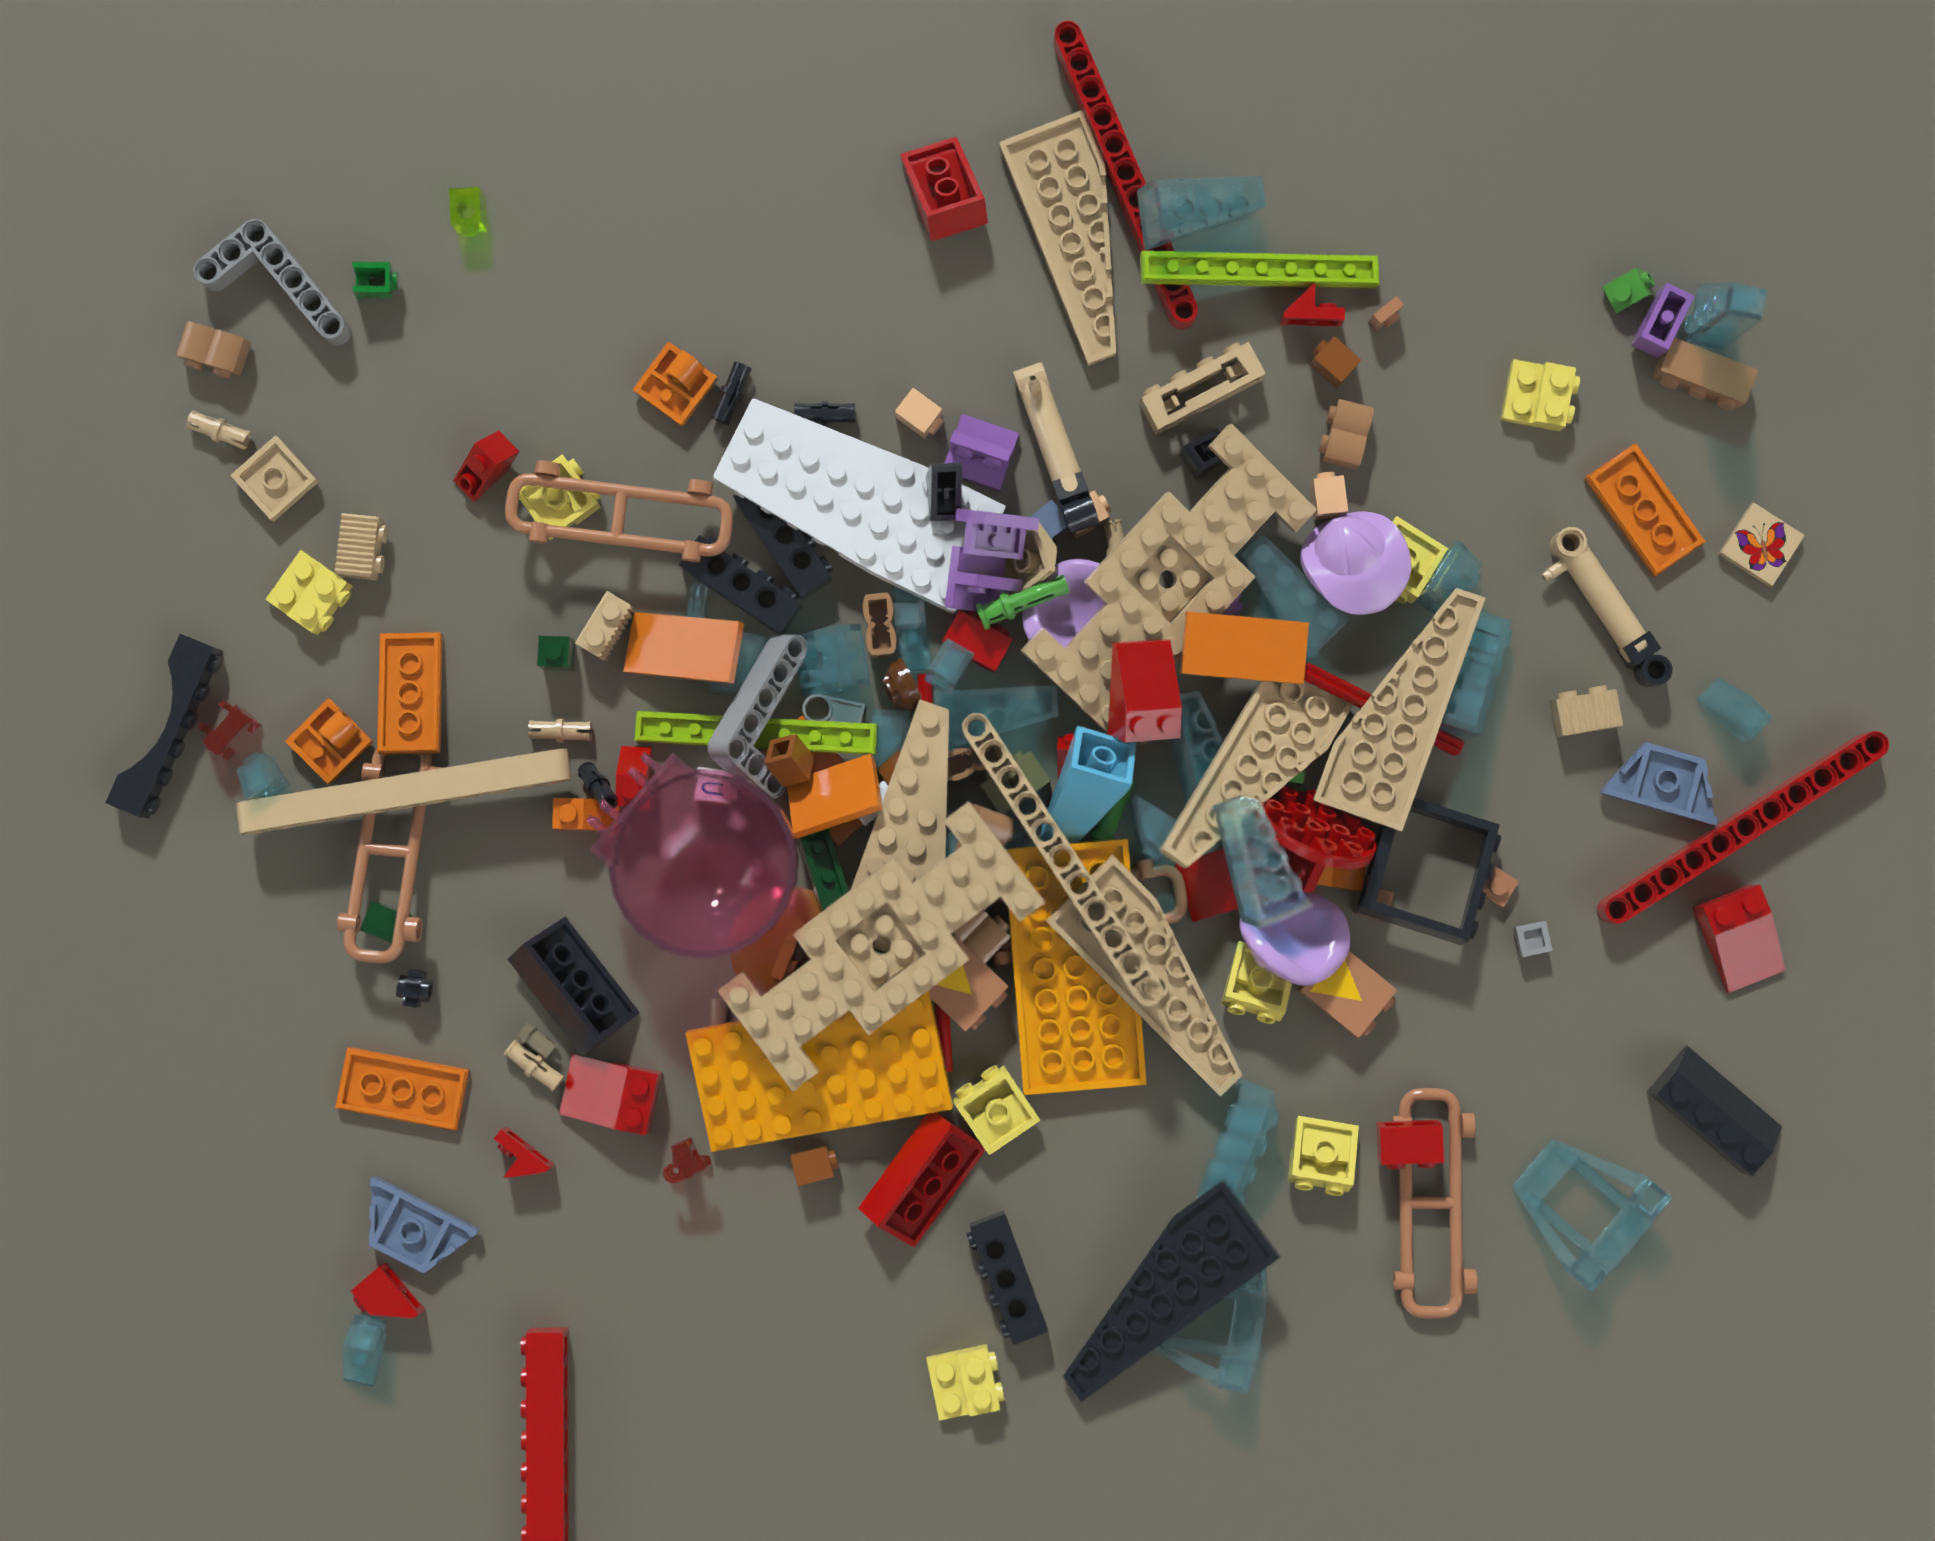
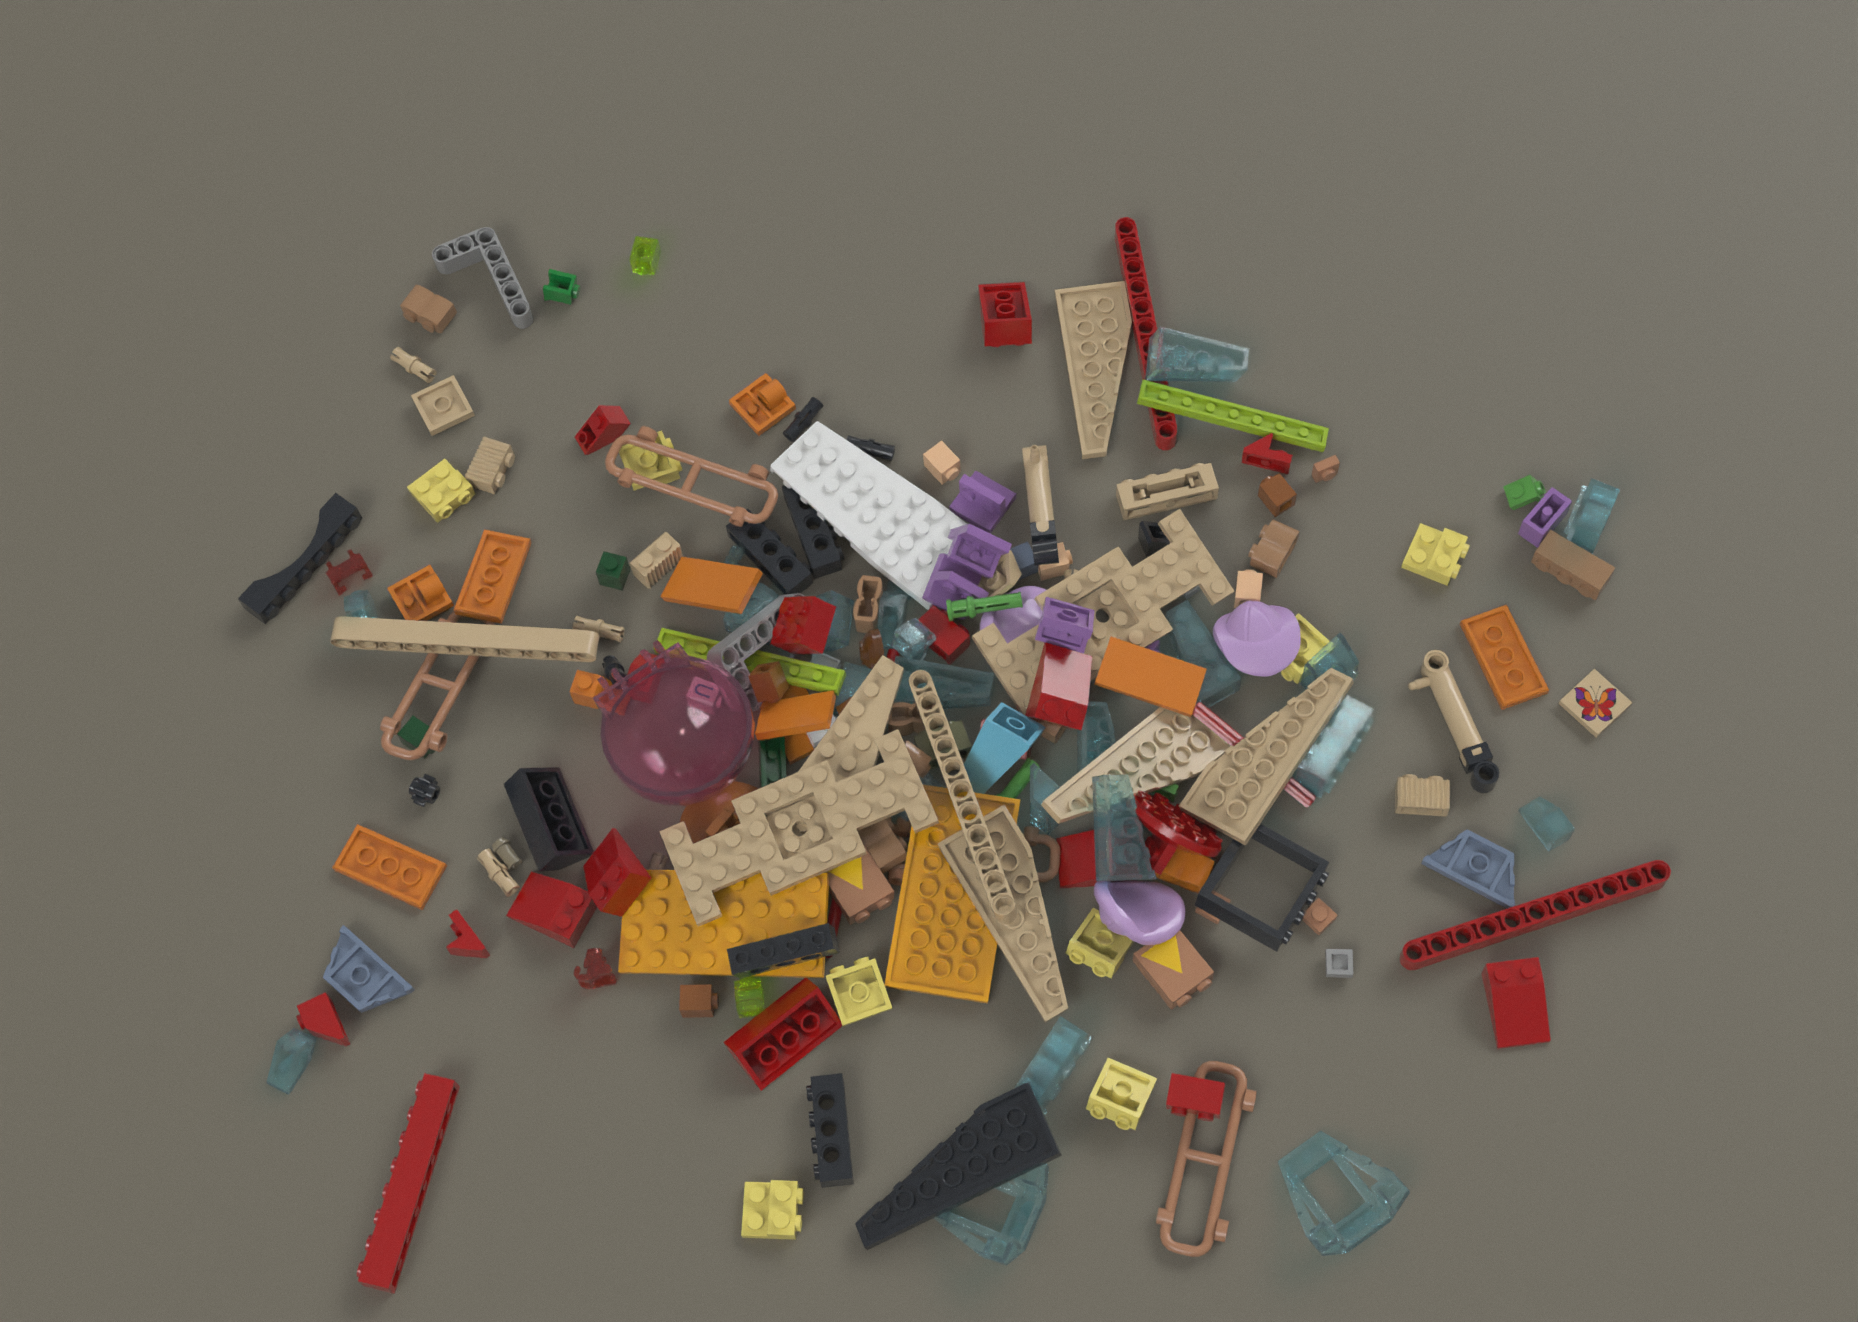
camera: 20 degrees right, 20 degrees down
(674, 1045) = (614, 875): none -> red slope
(812, 681) = (803, 625): none -> red brick
(871, 1145) = (749, 997): none -> clear neon green brick
(902, 1098) = (783, 951): none -> black brick
(944, 490) = (945, 513): black slope -> none
(1133, 612) = (1065, 625): none -> medium lavender bracket
(1716, 1111) = (1466, 1140): black slope -> none

